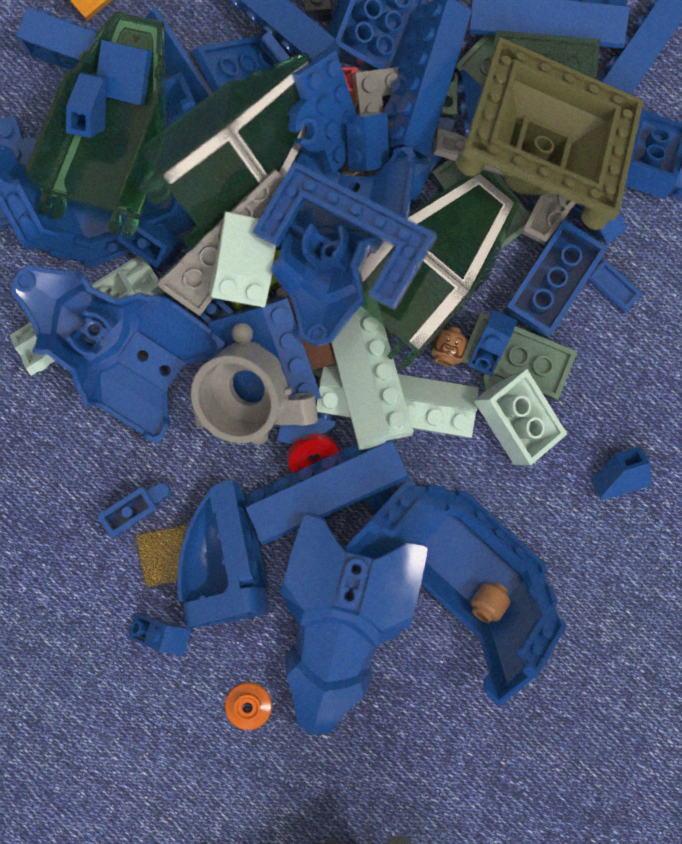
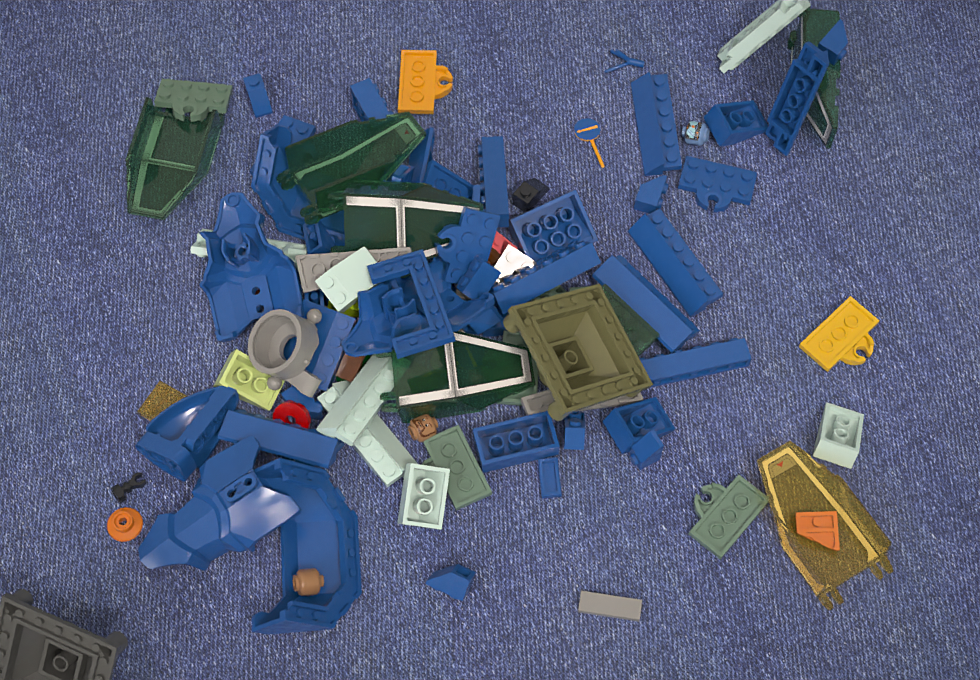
camera: 45 degrees right, 20 degrees down
(87, 106) = (349, 144): blue slope -> none
(125, 71) = (383, 142): blue tile -> none
(133, 509) = (172, 364): blue hinge -> none
(159, 634) = (118, 441): blue slope -> none
(215, 670) = (119, 492): none -> black piece
(217, 460) = (247, 380): none -> yellowish green slope
(492, 342) = (447, 442): blue slope -> none

